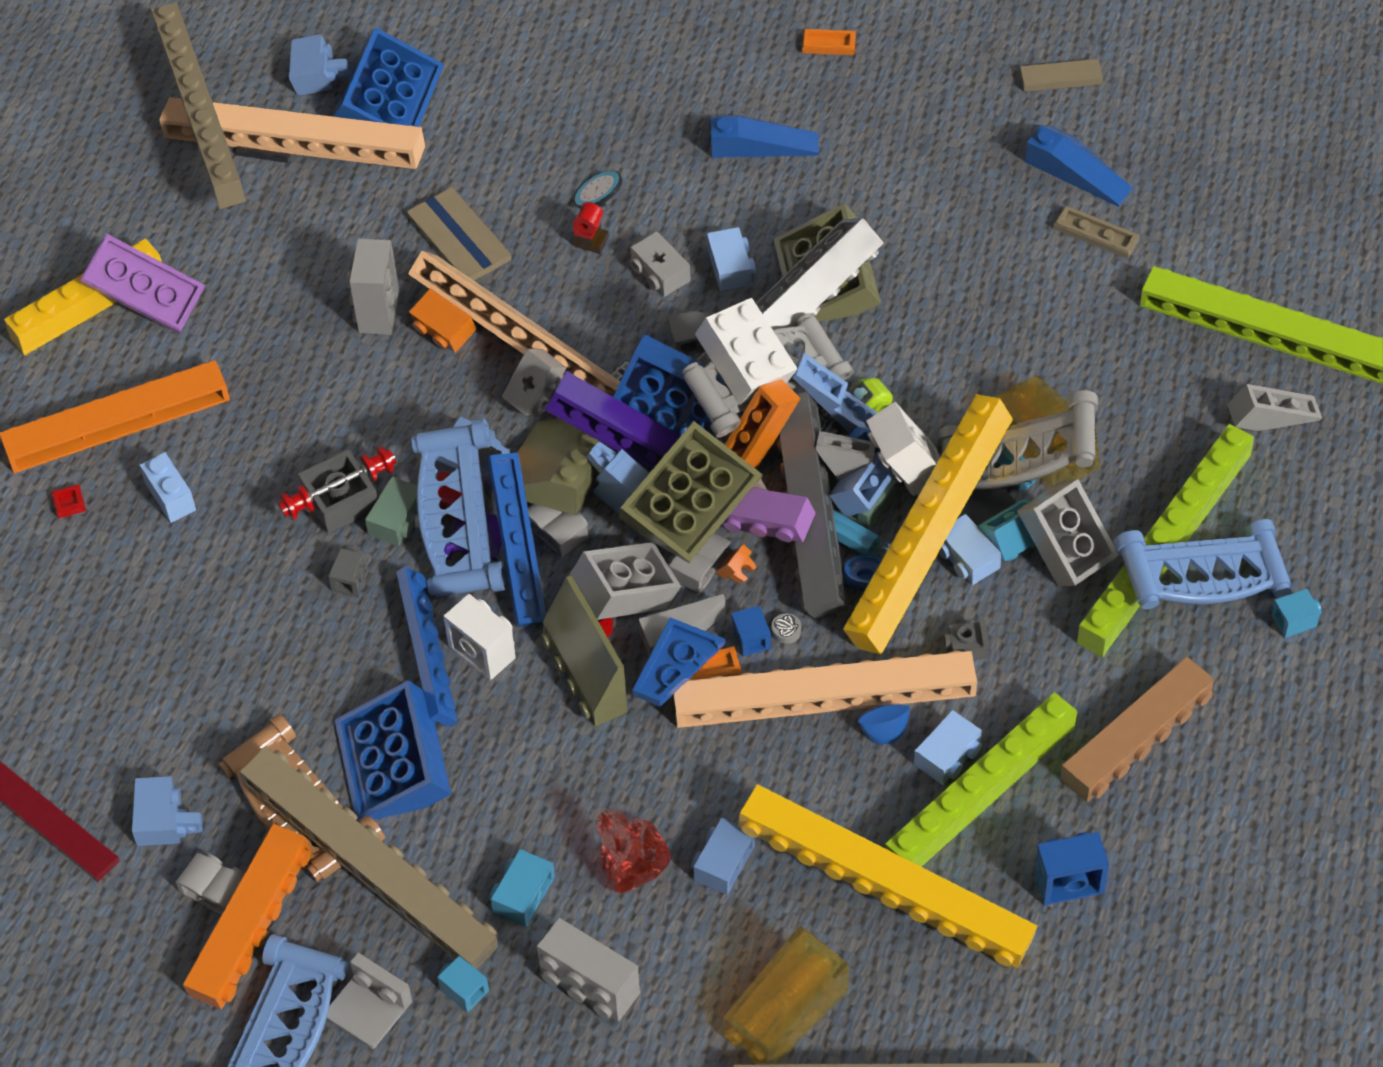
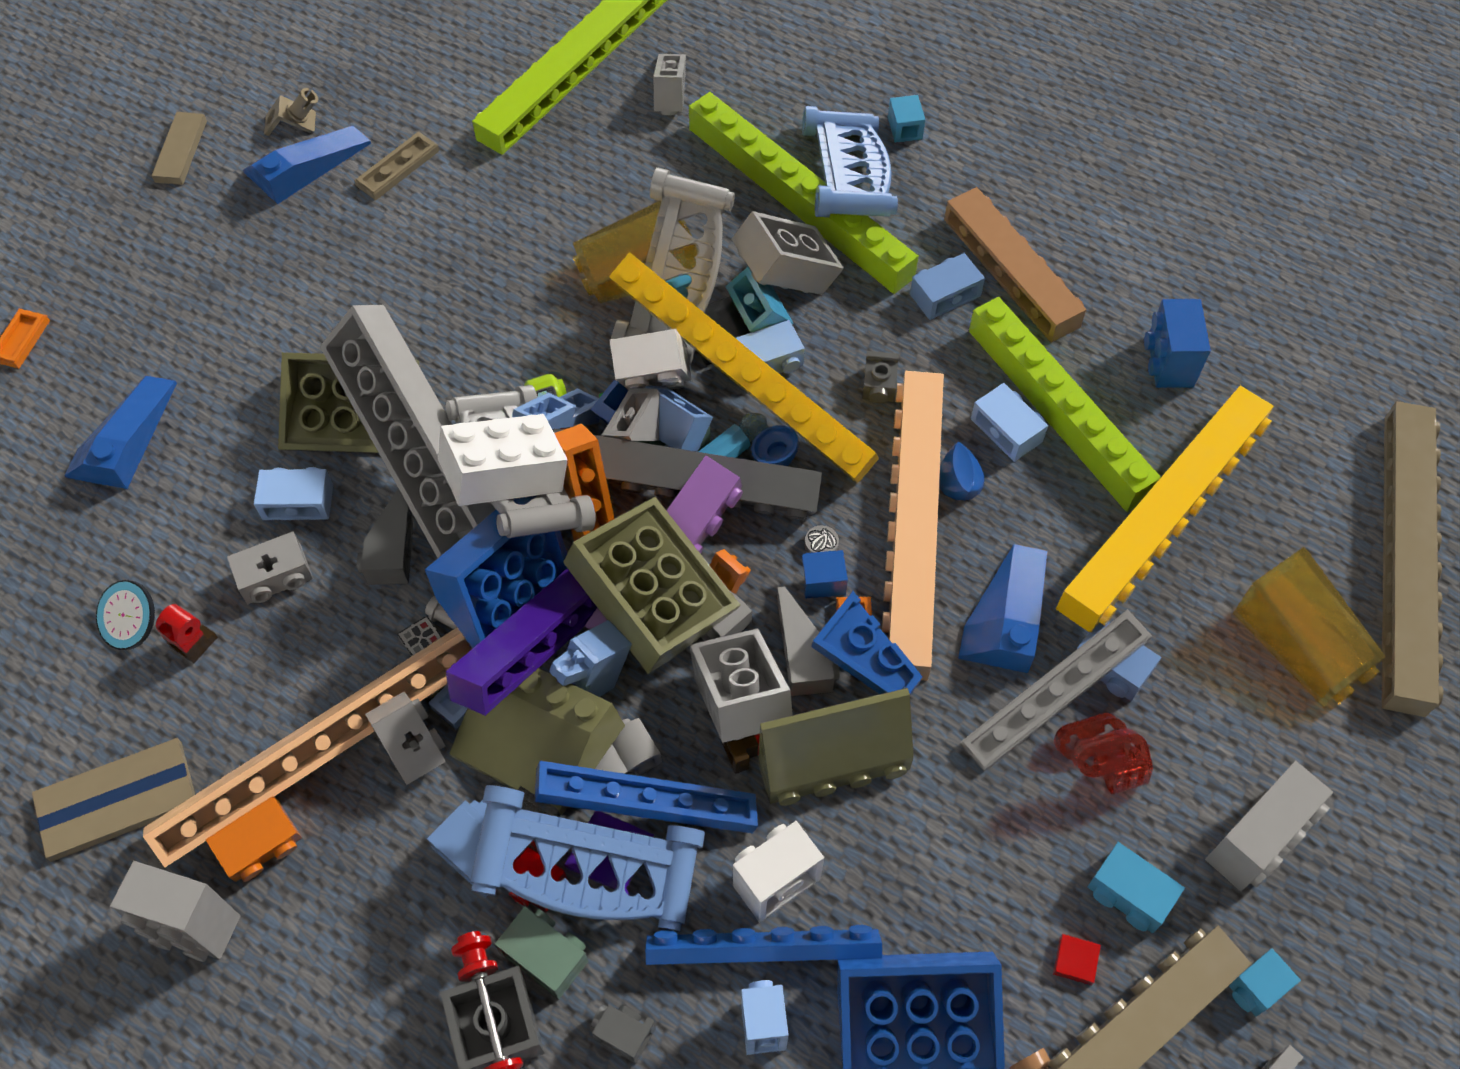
camera: 80 degrees left, 5 degrees up
(369, 647) = (764, 1018): none -> light blue brick
(459, 858) = (1077, 959): none -> red tile
(680, 809) = (1056, 690): none -> light grey tile
(735, 771) = (1008, 615): none -> blue wedge
(1090, 677) = (946, 286): none -> medium blue brick
(1123, 141) = (296, 113): none -> dark tan bracket

